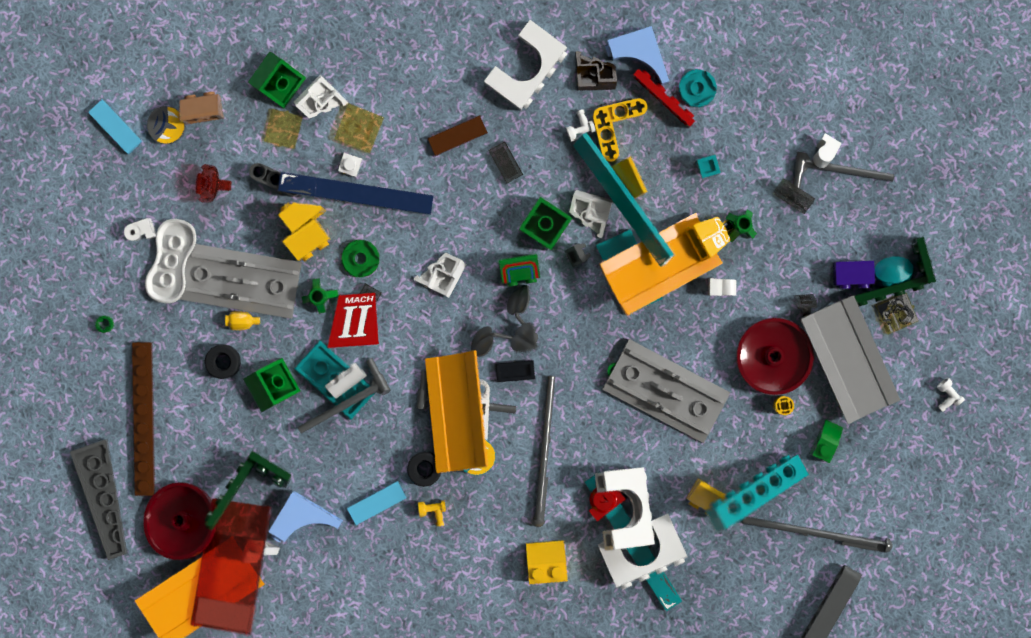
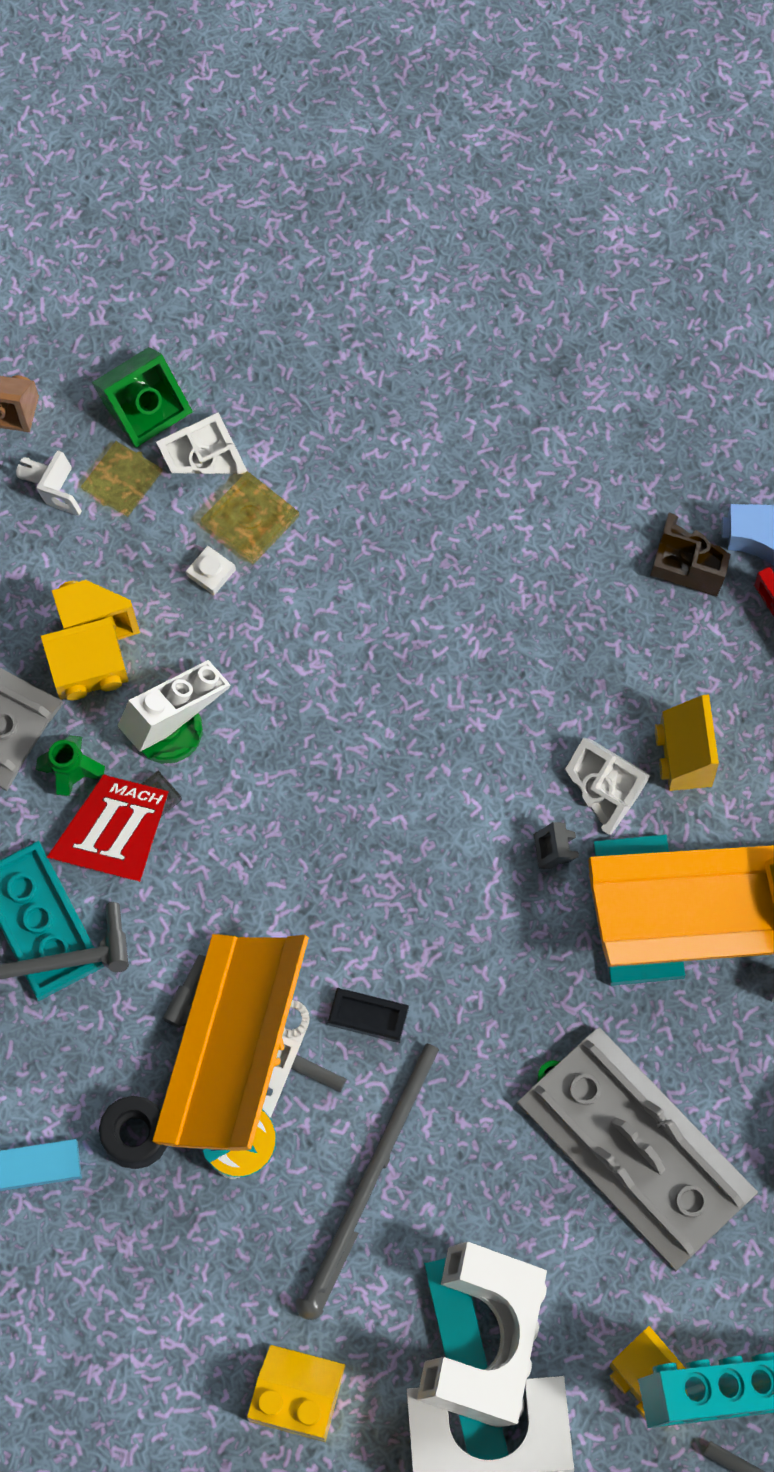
camera: 20 degrees right, 20 degrees down
(245, 143) = (50, 480): none -> white bracket
(267, 176) = (68, 537): dark grey beam -> none
(345, 380) = (55, 918): white slope -> none
(355, 193) = (201, 612): dark blue tile -> none
(360, 248) = (171, 704): none -> white slope
(438, 508) = (130, 1215): yellow piece -> none
(442, 275) = (301, 802): white slope -> none
(457, 135) = (414, 582): reddish brown tile -> none
(505, 162) = (482, 652): clear smoke tile -> none
(519, 269) = (441, 831): green slope -> none
(520, 92) = (551, 544): white arch -> none
(525, 336) = (401, 943): dark grey plant -> none
(545, 223) = (515, 770): green brick -> none
(585, 127) = (643, 639): white piece -> none
(604, 502) = (448, 1314): red piece -> none
(609, 110) = (694, 639): yellow beam -> none
(623, 200) = (672, 774): teal tile -> none

